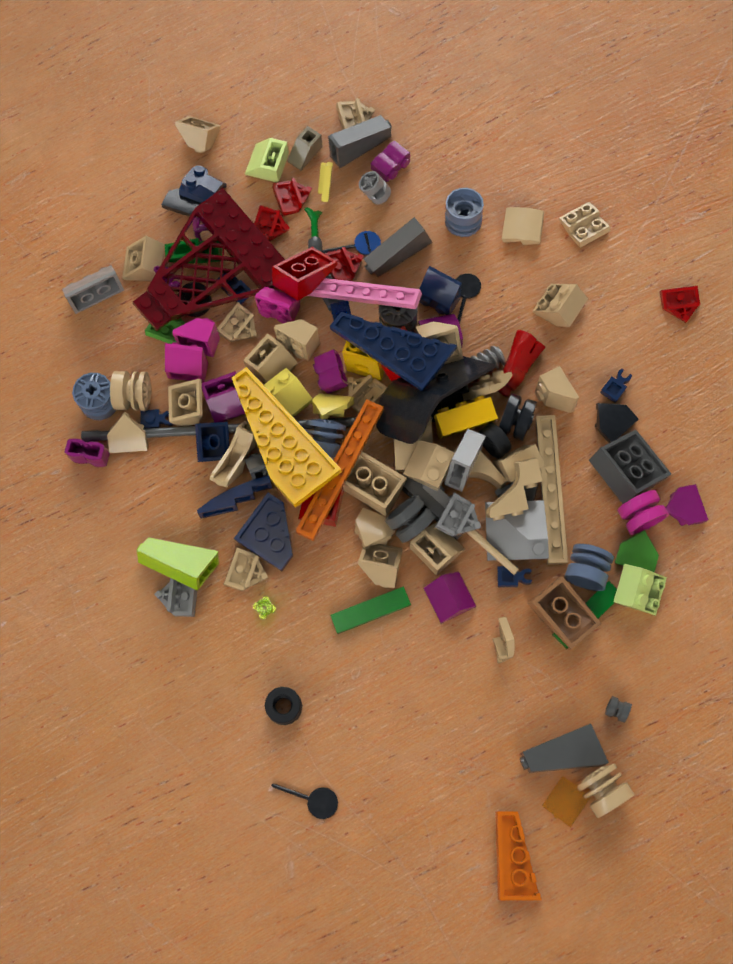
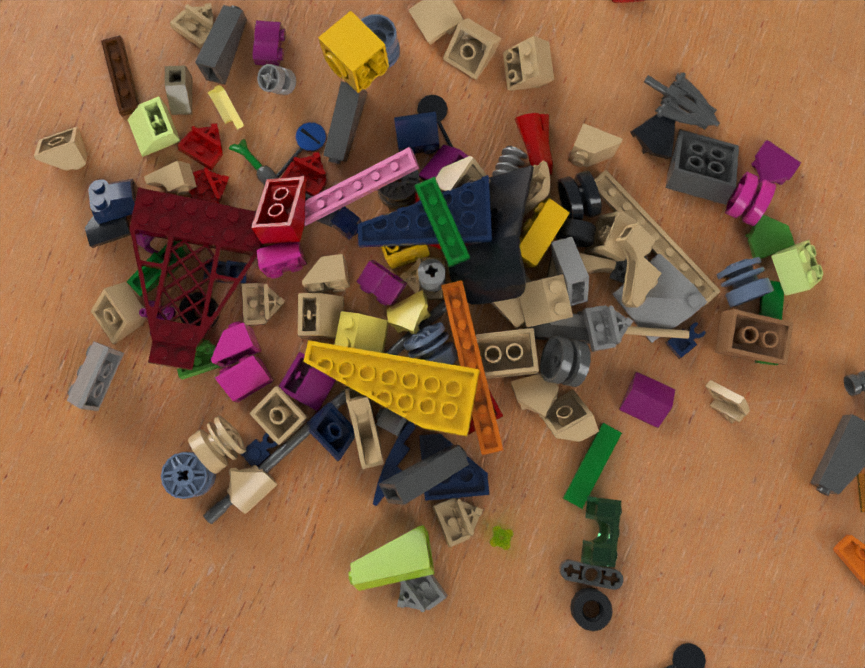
camera: 40 degrees left, 10 degrees up
(89, 452) = (229, 530): magenta brick -> none
(247, 515) = (424, 475): none -> dark grey slope
(252, 201) = (175, 177): none -> tan arch
(276, 112) = (120, 75): none -> reddish brown tile
(318, 691) = (607, 572): none -> dark grey beam
(351, 648) = (602, 549): none -> clear green arch
(366, 388) = (434, 267): none -> light grey piece
(398, 351) = (442, 221): none -> green tile
(435, 202) = (354, 52): none -> yellow brick
(436, 548) = (608, 369): tan slope -> none
(529, 264) = (471, 48): none -> tan slope
(615, 387) = (633, 105): dark blue plate -> none
(658, 429) = (700, 111): none -> dark grey bar

